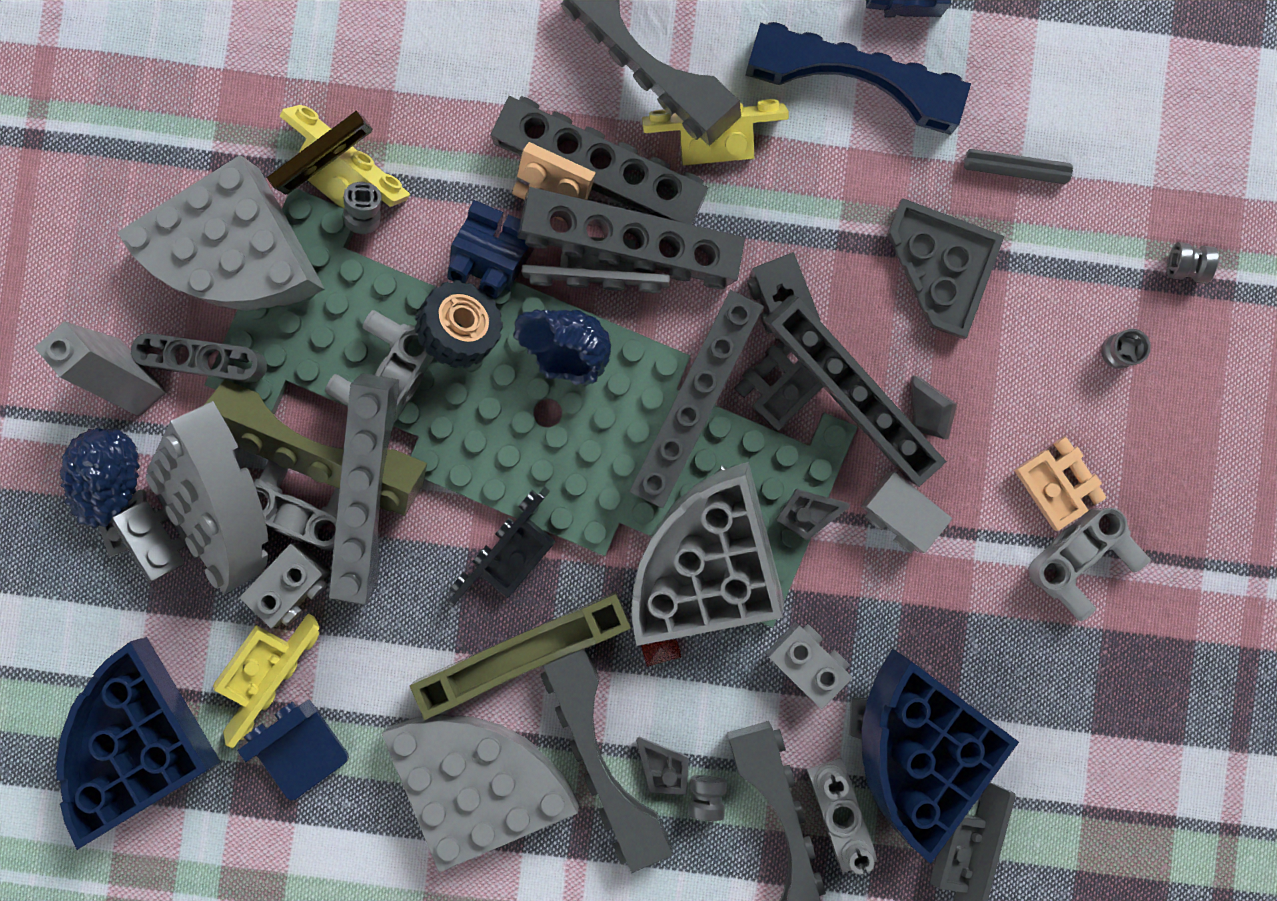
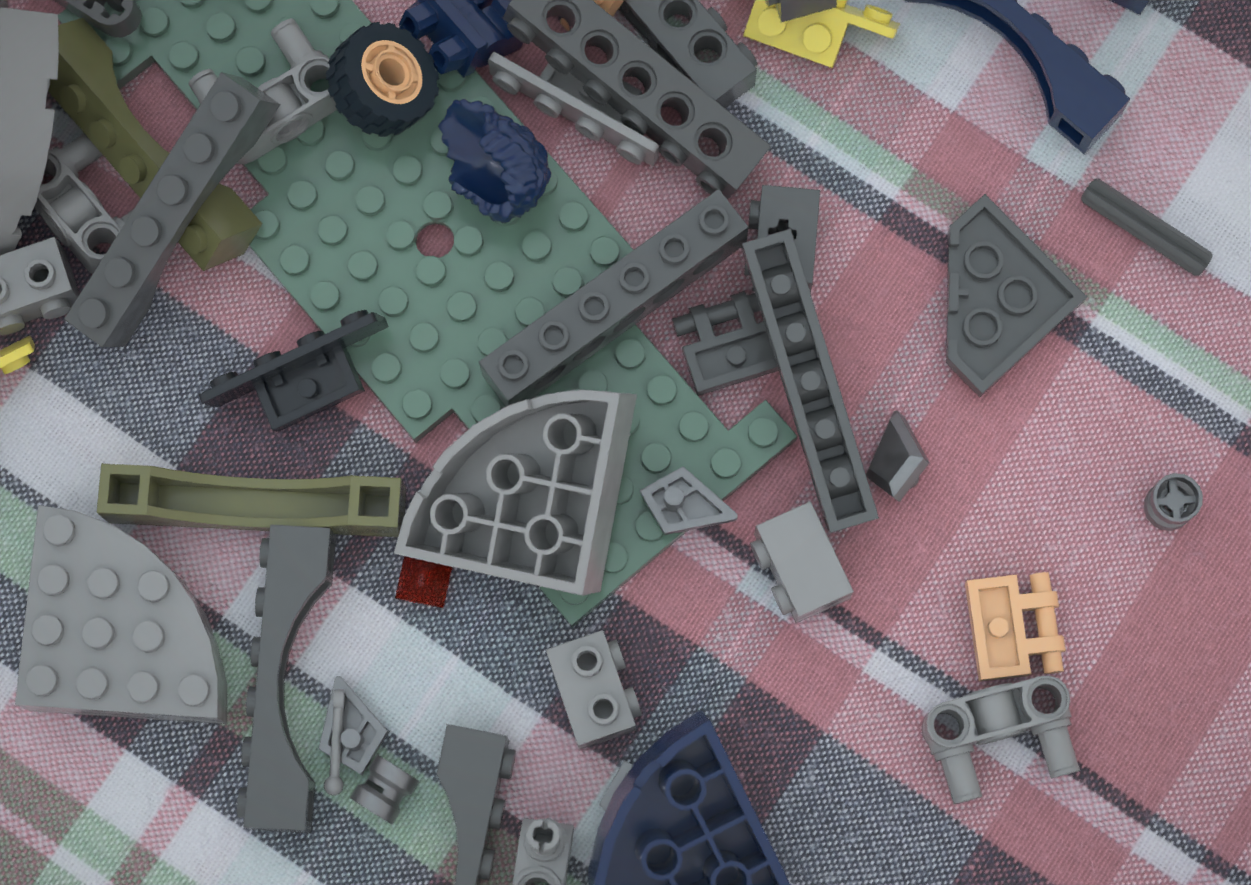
camera: 30 degrees right, 10 degrees down
(672, 810) = (333, 784): none -> light grey hinge

